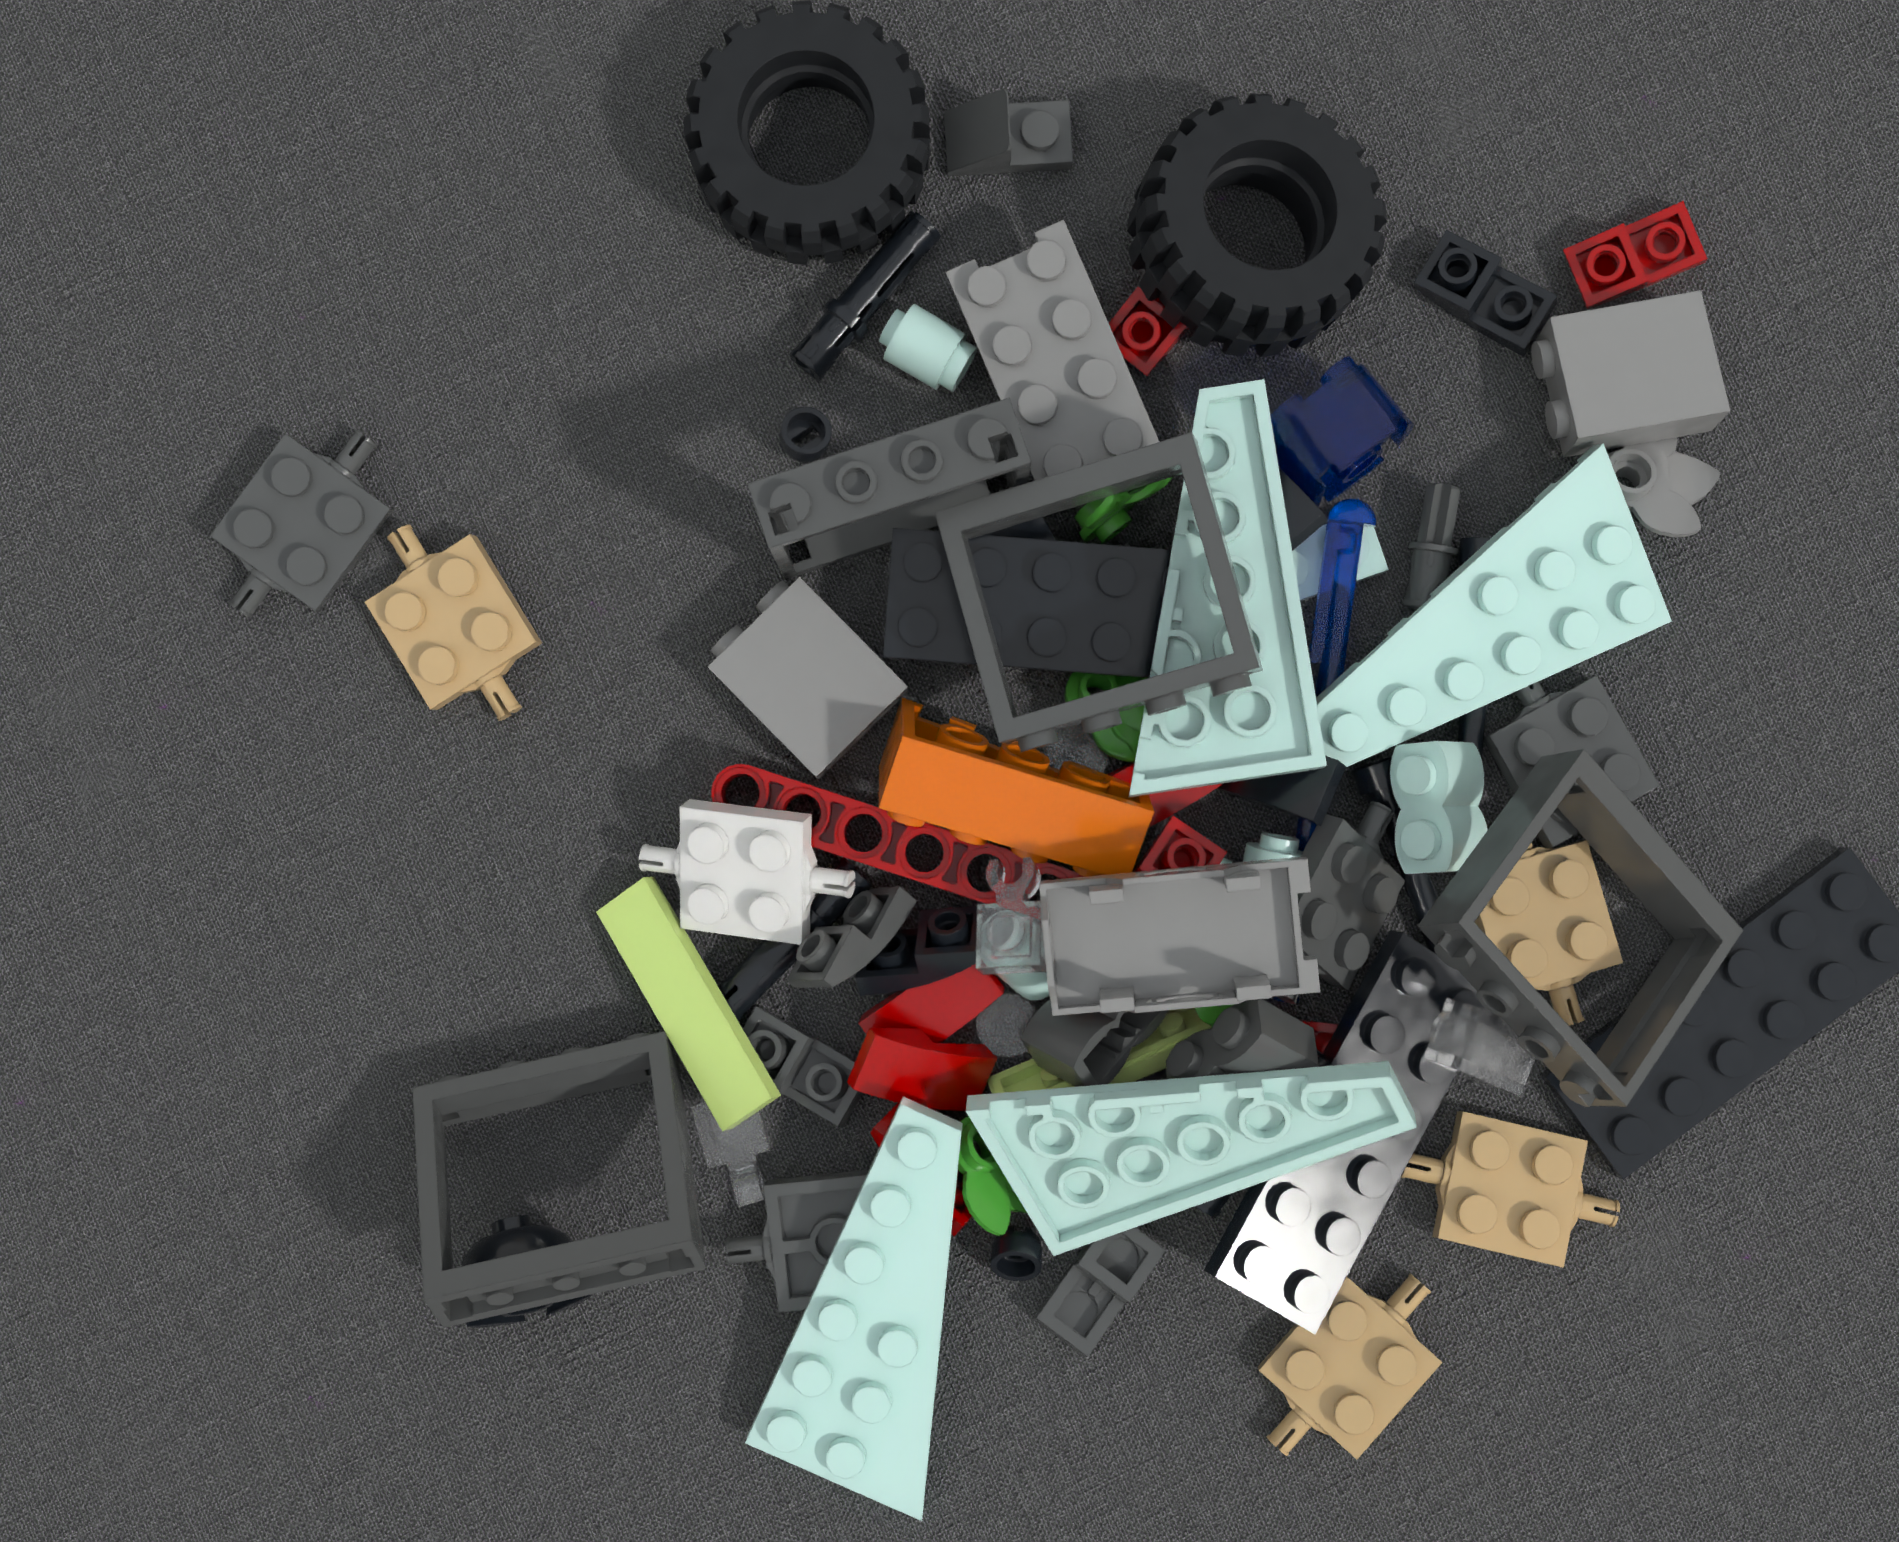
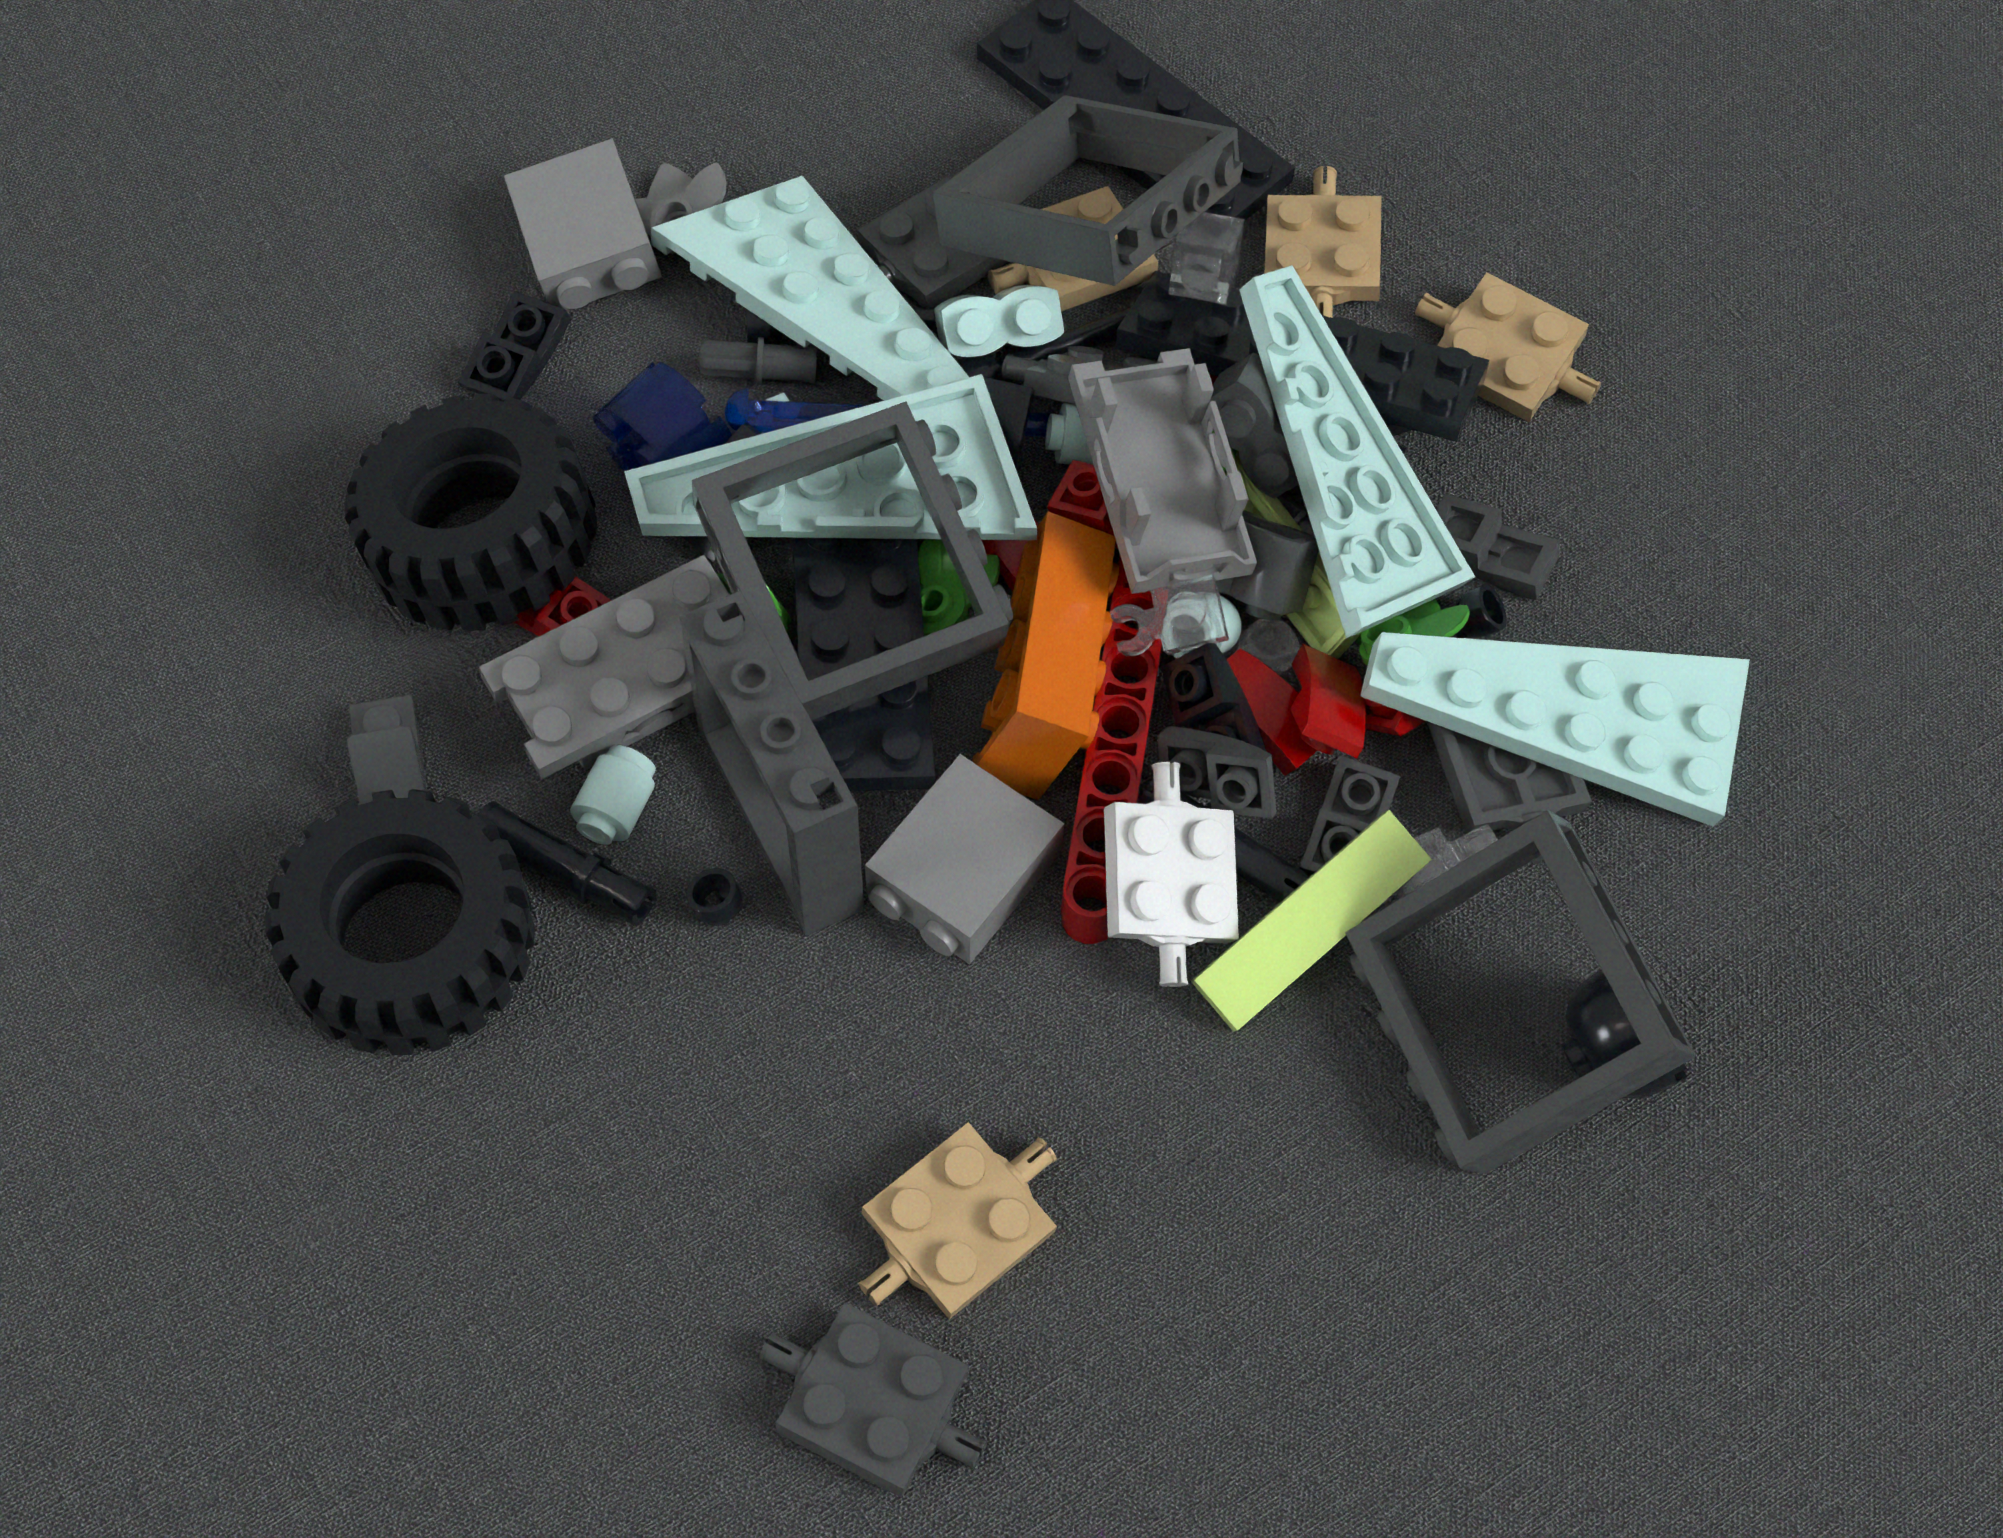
camera: 100 degrees left, 25 degrees down
(1635, 255) = (470, 242): red slope -> none

